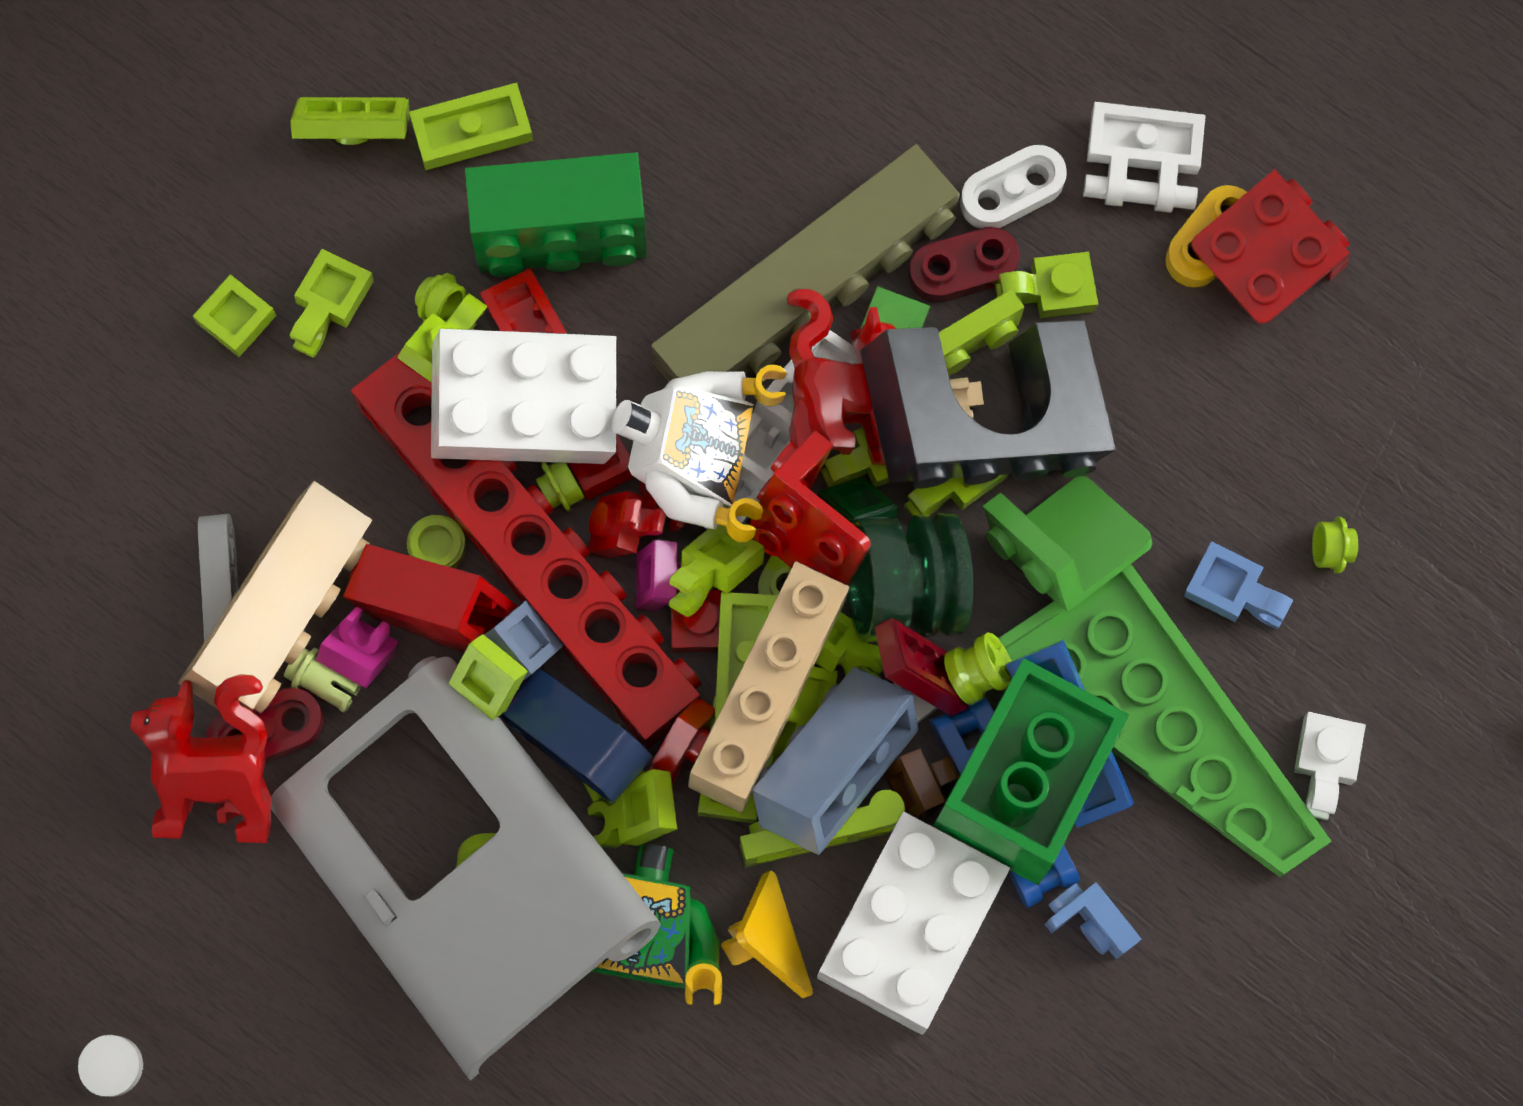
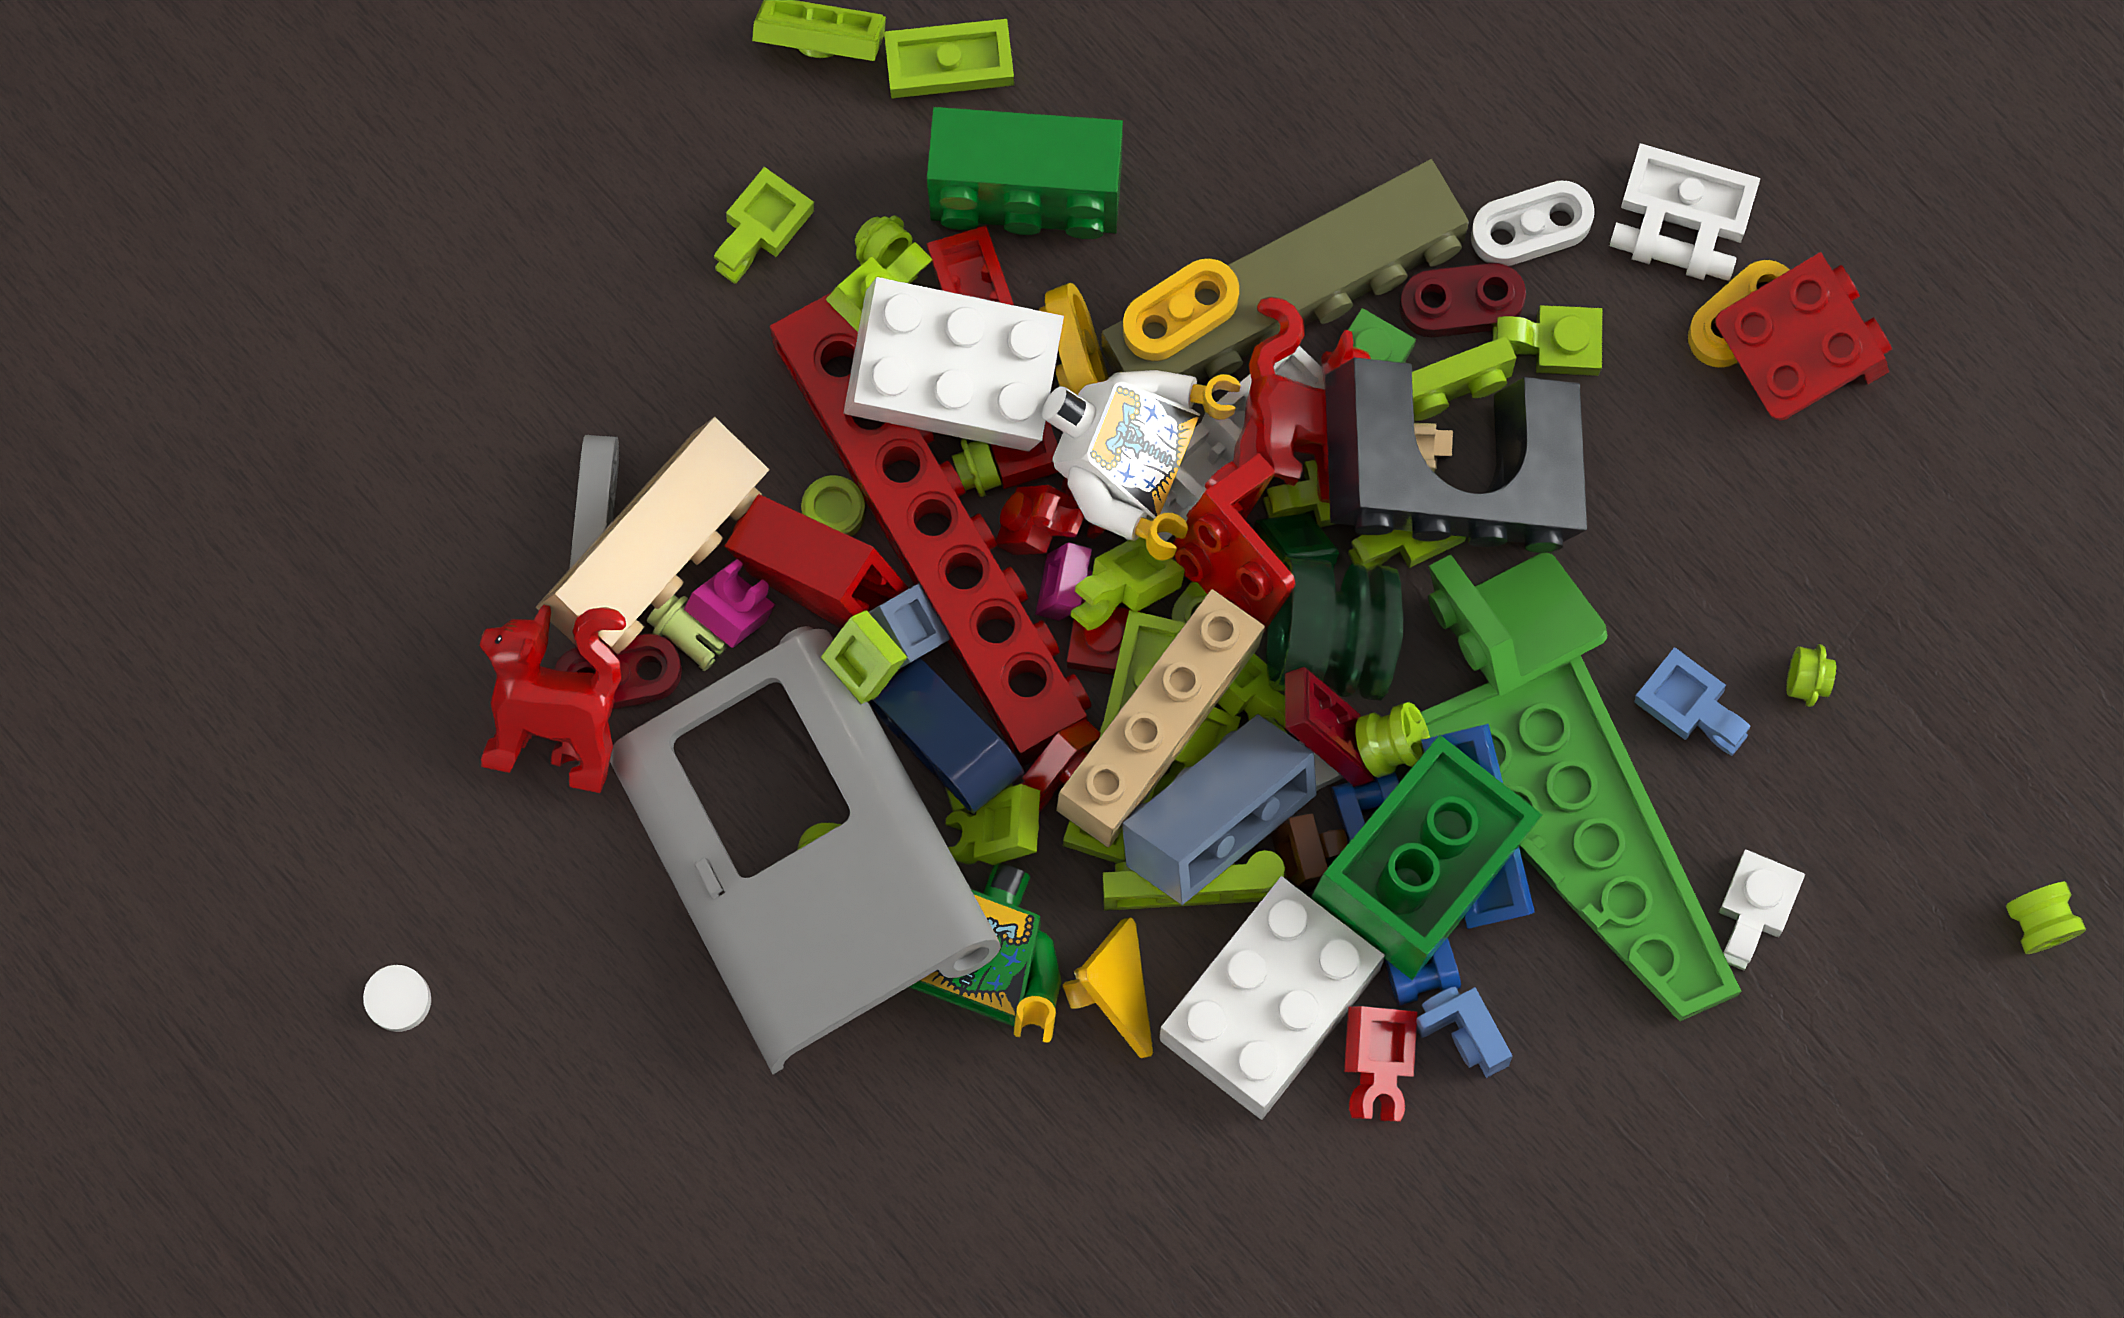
camera: 15 degrees right, 0 degrees up
(234, 315) = (658, 224): lime plate -> none
(632, 362) = (1078, 342): none -> yellow plate
(717, 315) = (1177, 309): none -> yellow plate
(1019, 952) = (1380, 1048): none -> plate

